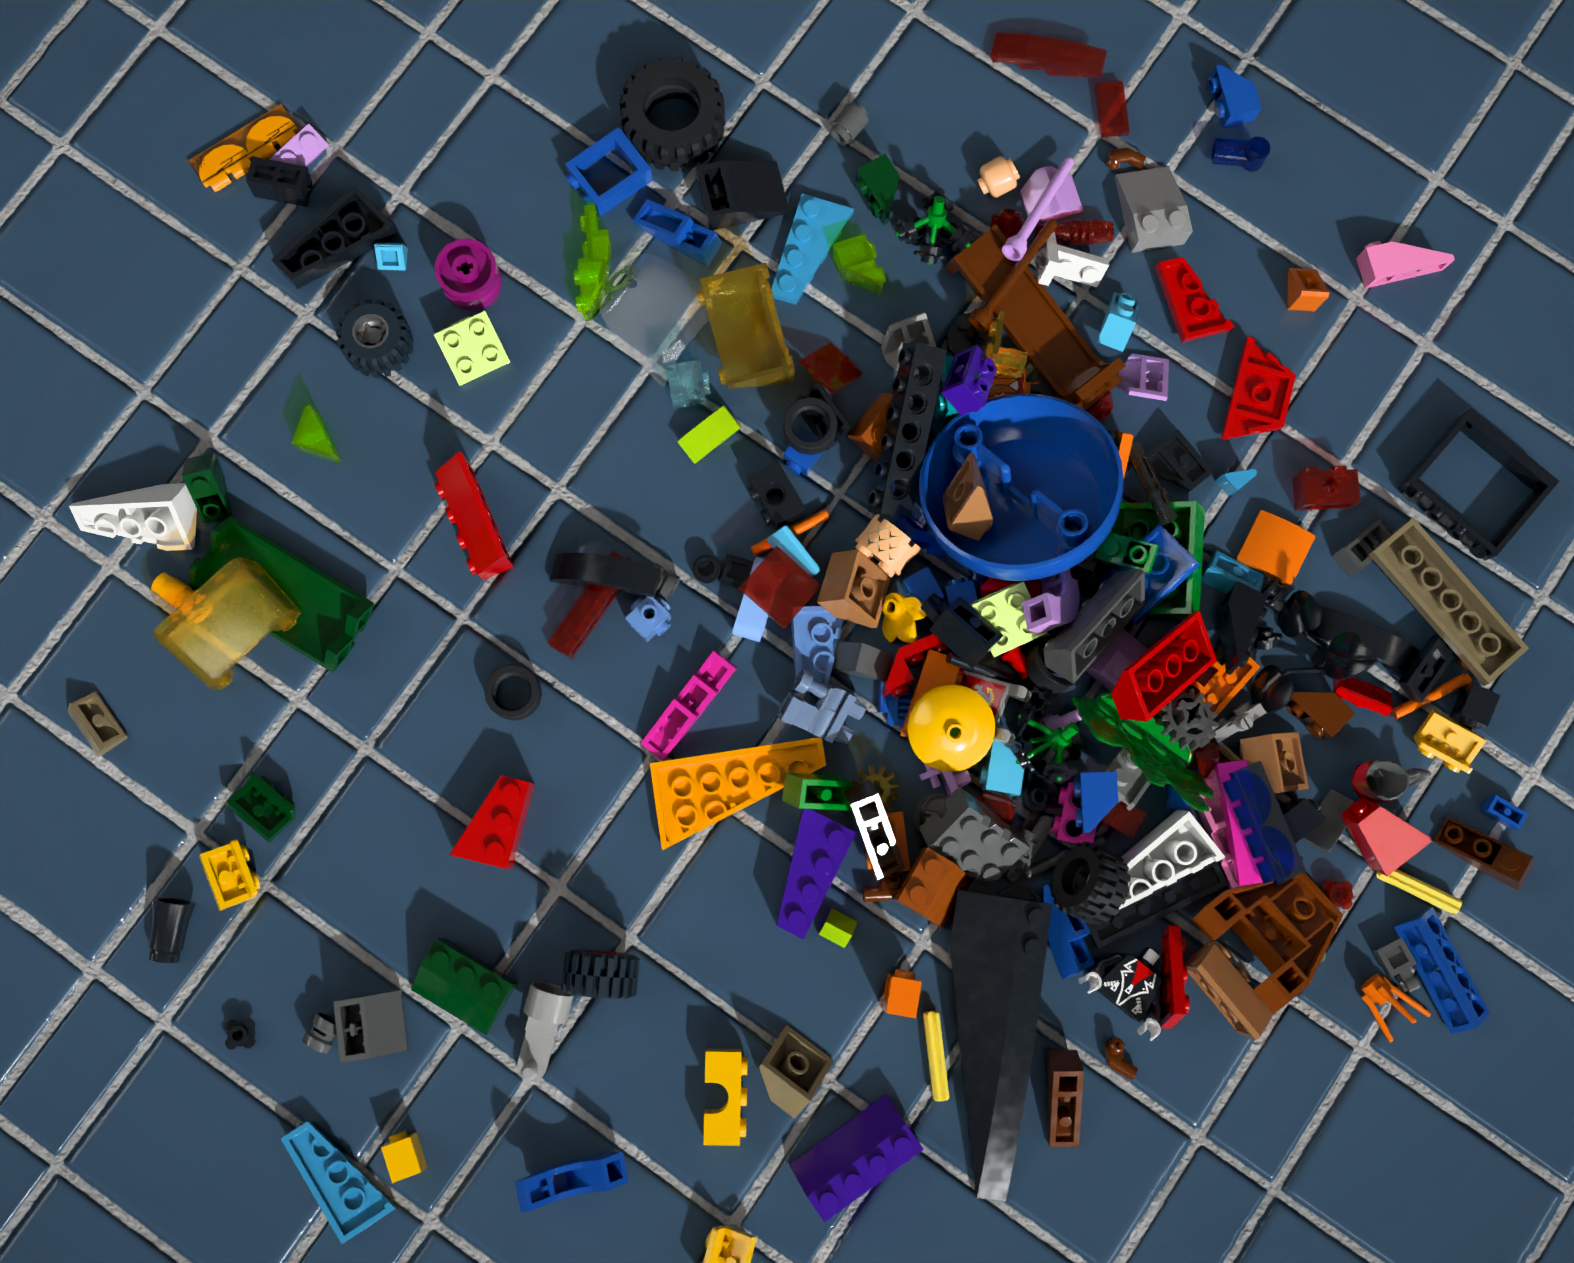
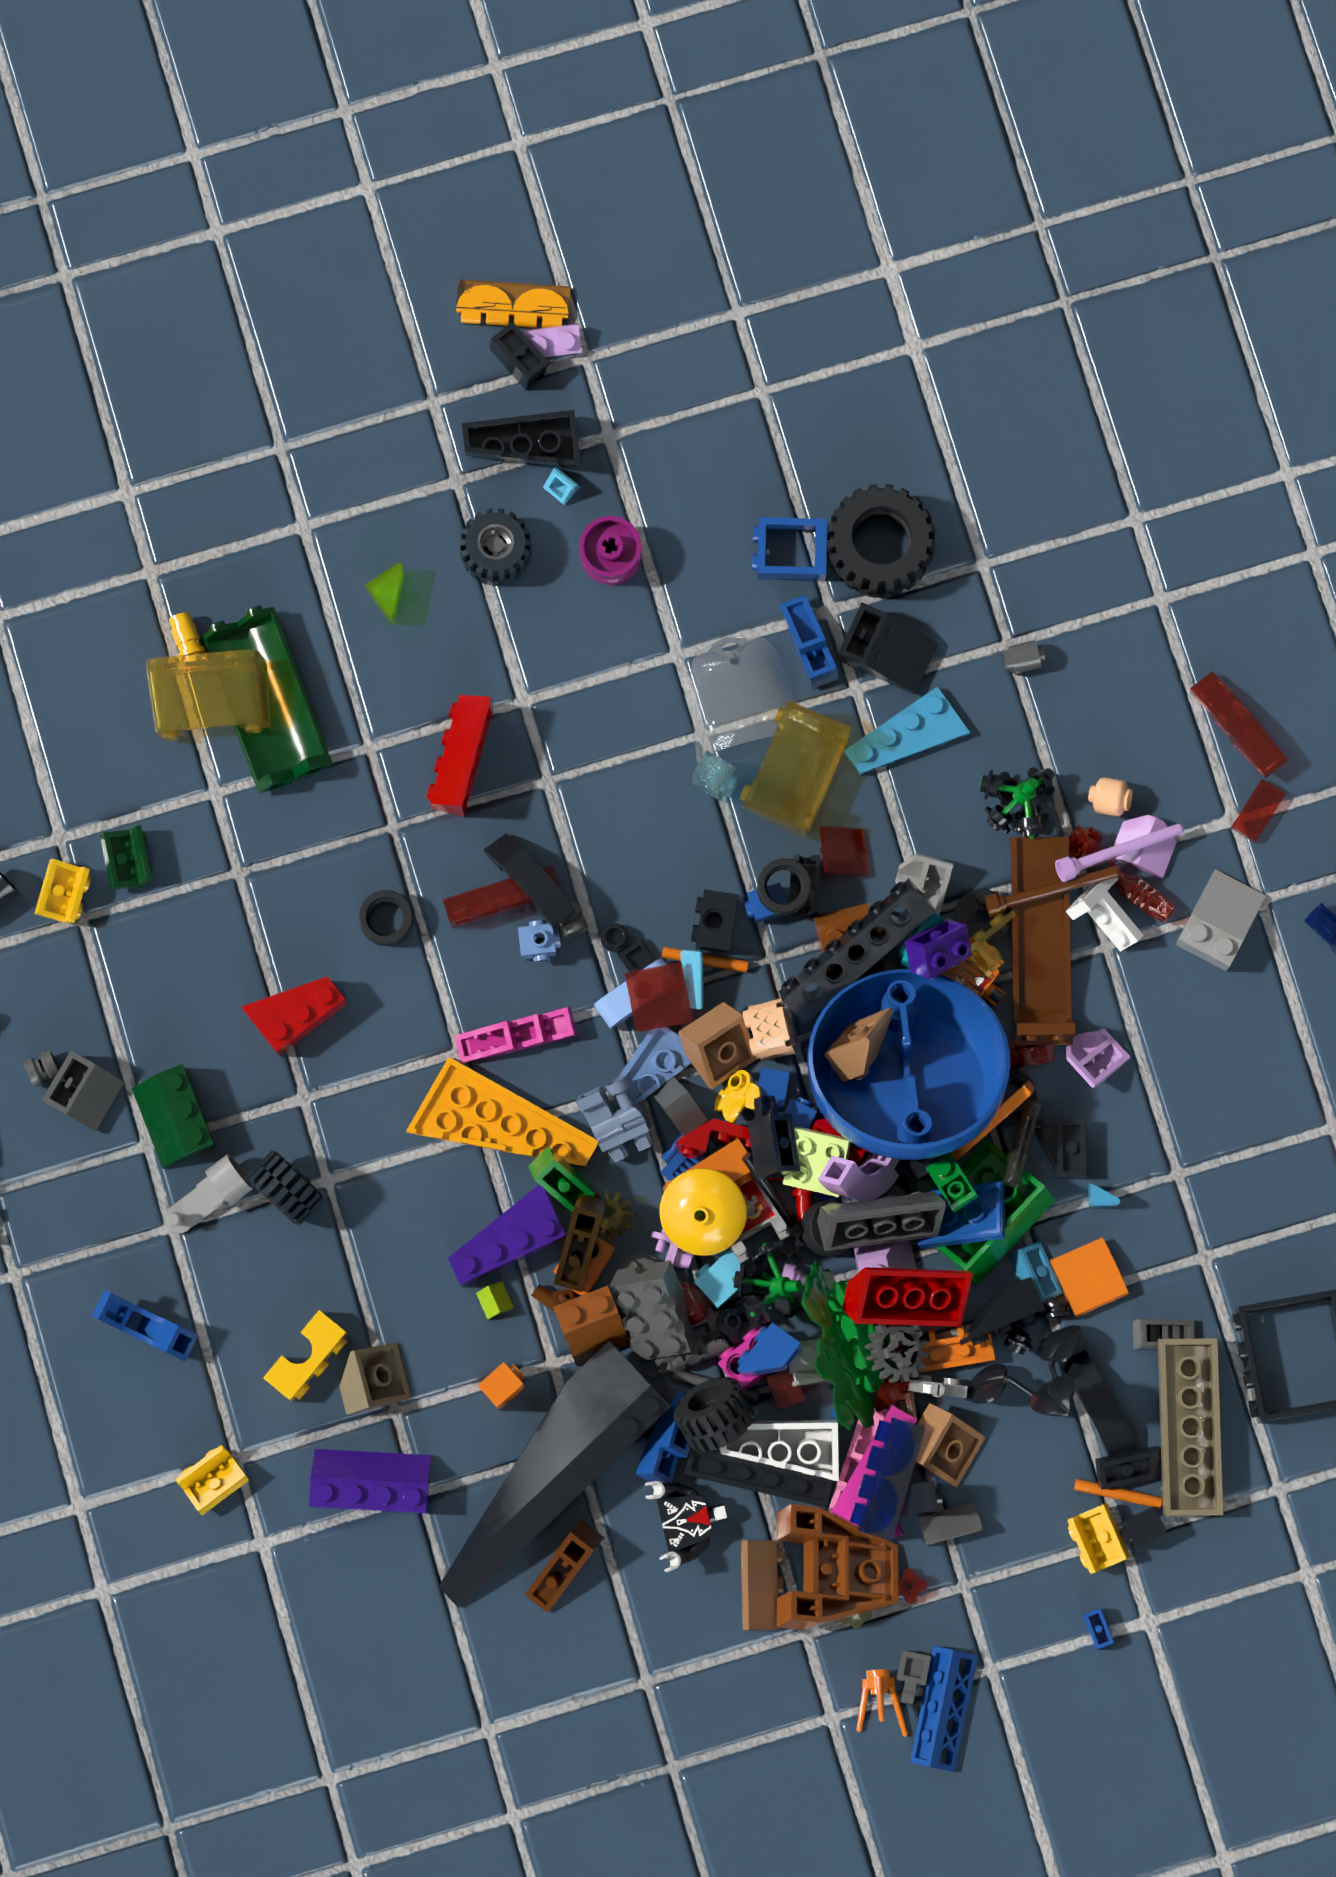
camera: 45 degrees right, 0 degrees up
(96, 723) = (47, 692): dark tan slope -> none
(150, 514) = (213, 557): white wedge -> none
(207, 487) = (273, 568): dark green slope -> none
(403, 1156) = (33, 1209): yellow brick -> none
(471, 347) = (567, 612): yellowish green plate -> none
(595, 266) = (714, 625): clear neon green slope -> none
(709, 434) = (702, 830): lime slope -> none
(857, 264) = (933, 782): clear neon green slope -> none
(879, 184) = (1007, 730): dark green slope -> none
(919, 535) = (799, 1035): clear blue slope -> none
(936, 1055) = (492, 1456): light yellow axle -> none
(1115, 1058) = (630, 1569): reddish brown arm -> none
(1119, 321) = (1112, 993): medium azure slope -> none
(1126, 155) = (1232, 857): reddish brown arm -> none
(1173, 995) = (726, 1540): red wing -> none
(1189, 304) = (1184, 1027): red wing -> none
(1258, 394) = (1180, 1142): red wing -> none
(1305, 289) = (1293, 1085): orange slope -> none
(1311, 495) = (1176, 1277): clear red brick -> none
(1321, 712) = (1015, 1433): reddish brown slope -> none
(1364, 695) = (1060, 1446): red plate -> none
(1382, 836) = (980, 1565): slope -> none
(1384, 780) = (1015, 1523): dark grey hair -> none
(1422, 890) = (978, 1633): light yellow axle -> none
(1485, 853) = (1054, 1647): reddish brown slope -> none

